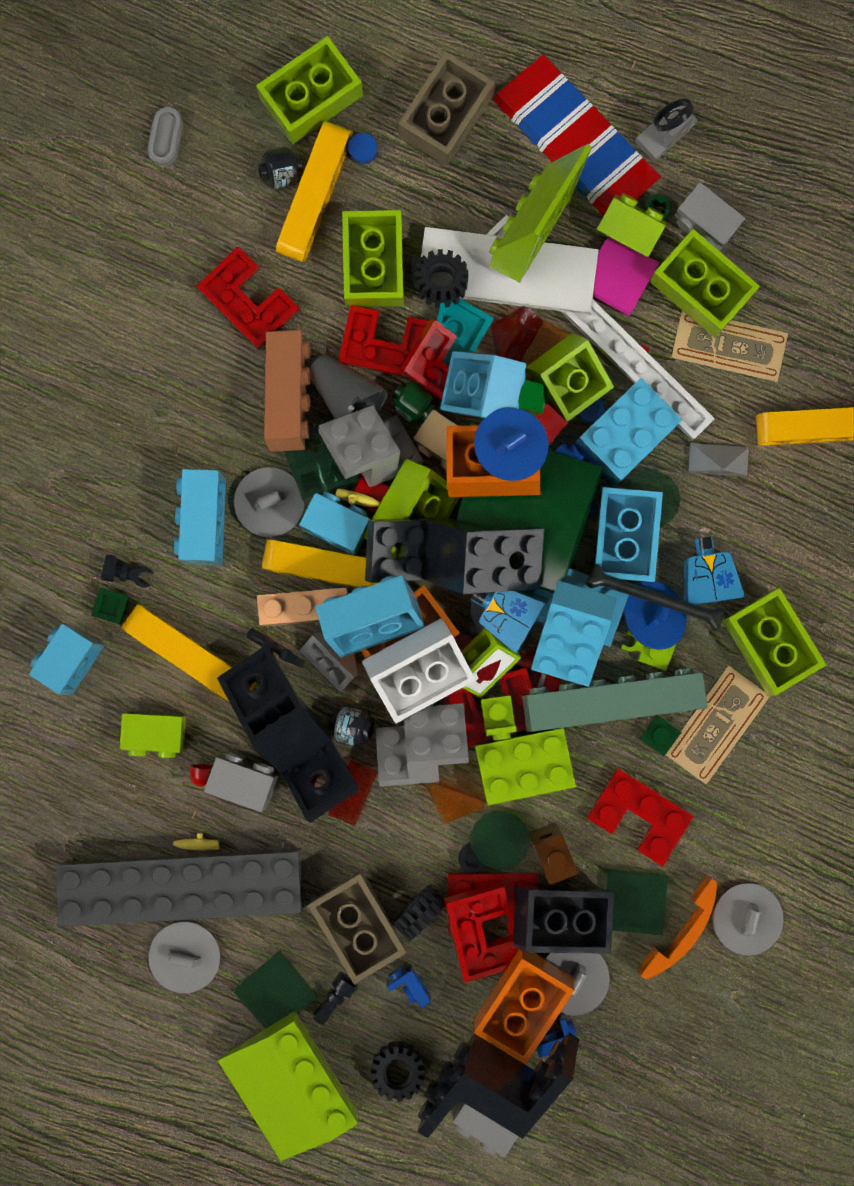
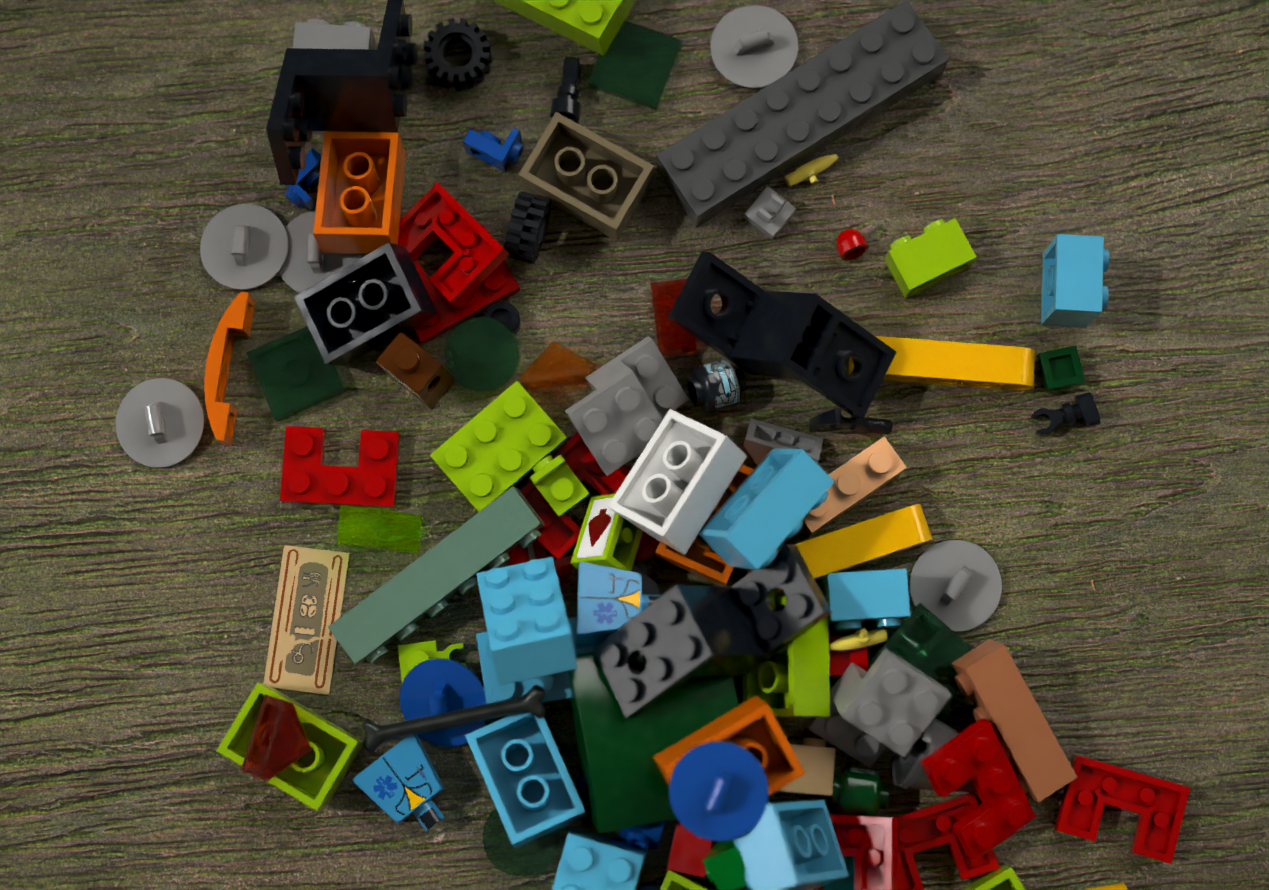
camera: 155 degrees right, 5 degrees down
(200, 517) = (1020, 519): medium azure brick -> none
(242, 782) = (801, 256): light grey brick -> none
(243, 829) = (769, 212): none -> light grey tile
(322, 375) = (980, 757): none -> red plate
(624, 1014) = (244, 246): none -> light grey shield
(636, 756) = (378, 530): none -> clear neon green slope
(660, 735) = (365, 569): dark green plate -> none
(784, 648) = (276, 739): none -> clear red slope

